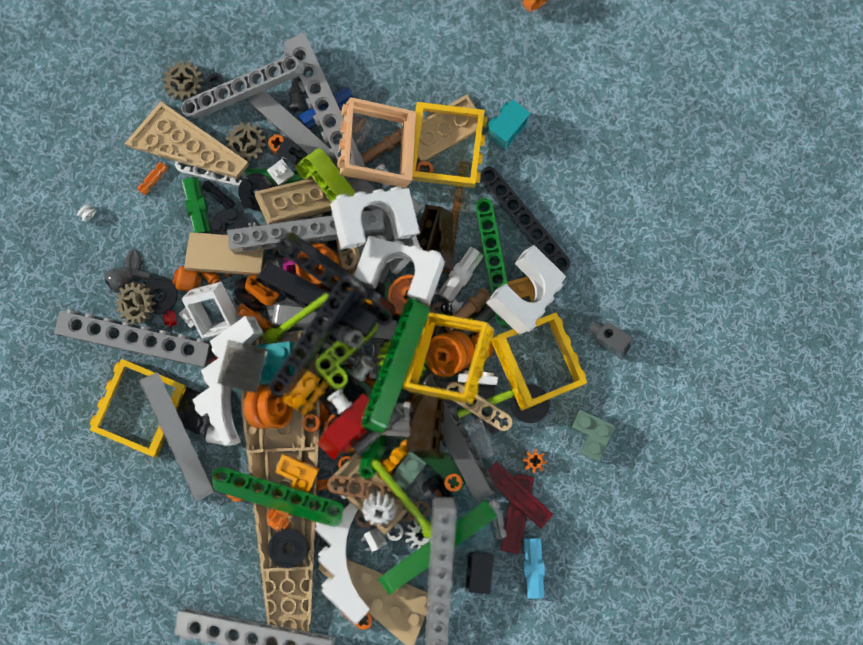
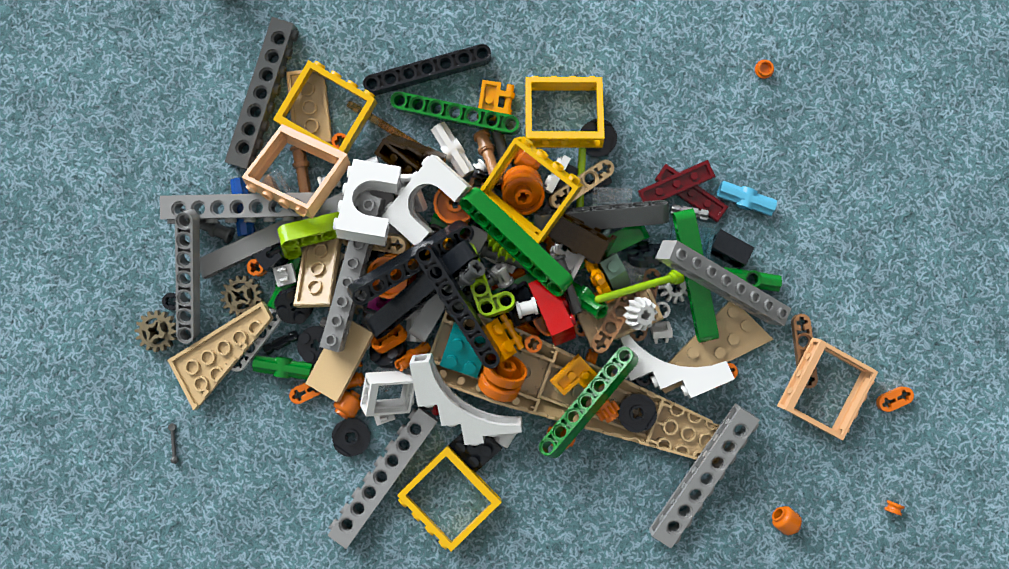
camera: 65 degrees left, 5 degrees up
(86, 212) = (244, 472): white bush -> none
(101, 131) = (172, 427): none -> dark grey hinge
(119, 277) = (320, 467): dark grey piece -> none
(135, 303) = (350, 461): dark tan gear -> none
(152, 178) = (238, 397): orange axle -> none
(169, 318) = (378, 435): red plate -> none
(176, 436) = (491, 473): light grey beam -> none
(180, 240) = (309, 395): none -> orange beam
(242, 366) = (455, 385): clear smoke brick -> none
(274, 334) = (436, 345): lime piece -> none
(444, 74) = (276, 30): none -> dark grey brick
(447, 485) = (640, 231): orange bush -> none
(461, 617) = (762, 280): none -> green piece
(508, 124) = (330, 43): teal brick -> none
(530, 465) = (647, 155): orange gear -> none
(546, 281) = (494, 73): white arch -> none
(597, 433) = (651, 89): sand green brick -> none
(618, 344) = (579, 35): dark grey torso -> none
(664, 533) = (764, 69): none -> orange plate

